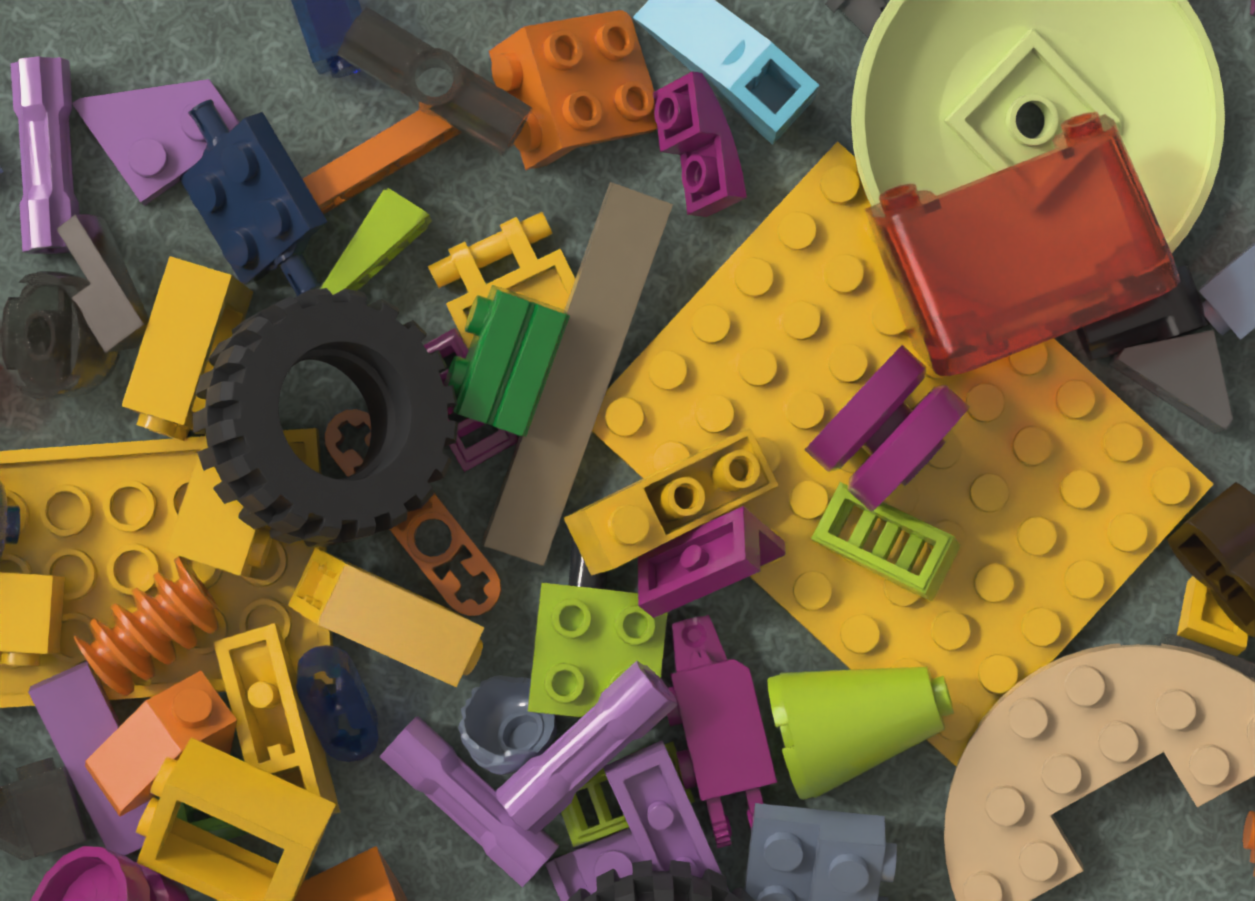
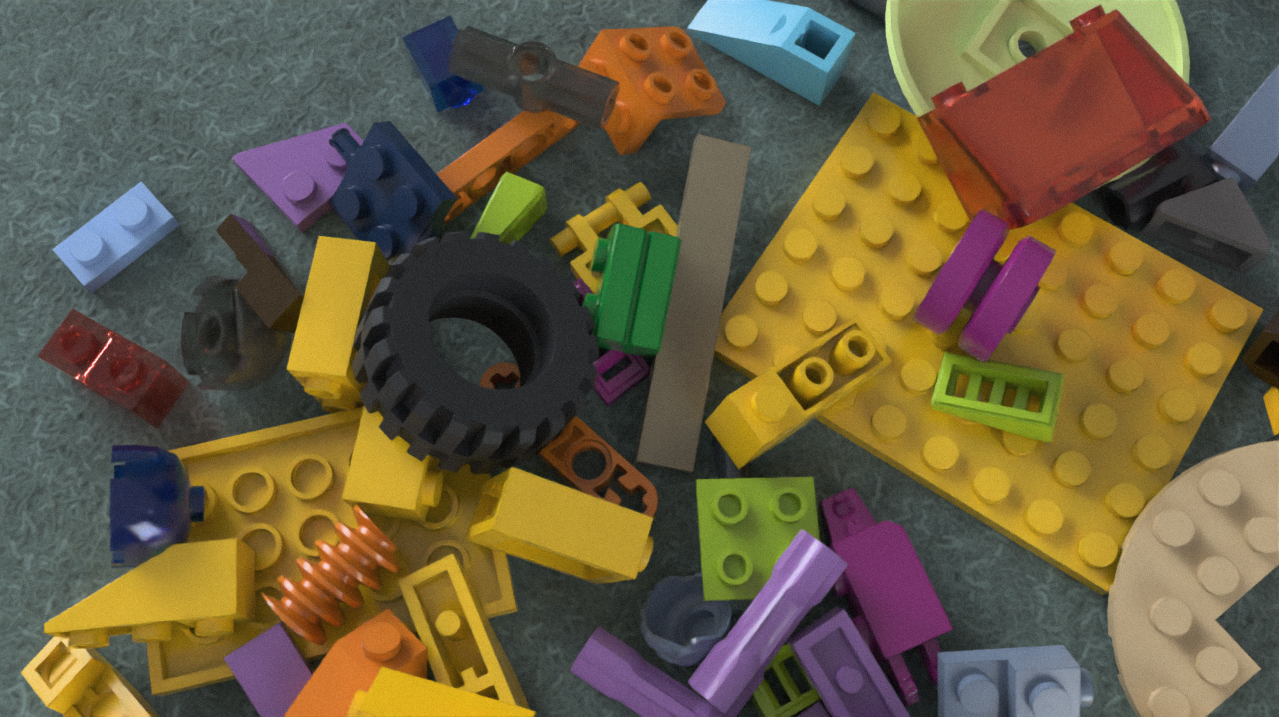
camera: 10 degrees left, 15 degrees down
(43, 109) = (207, 165): medium lavender axle -> none
(325, 709) = (534, 619): clear blue beam -> none
(697, 130) = (761, 104): magenta slope -> none
(705, 561) = (842, 433): magenta panel -> none
(853, 720) = (1012, 558): lime cone -> none

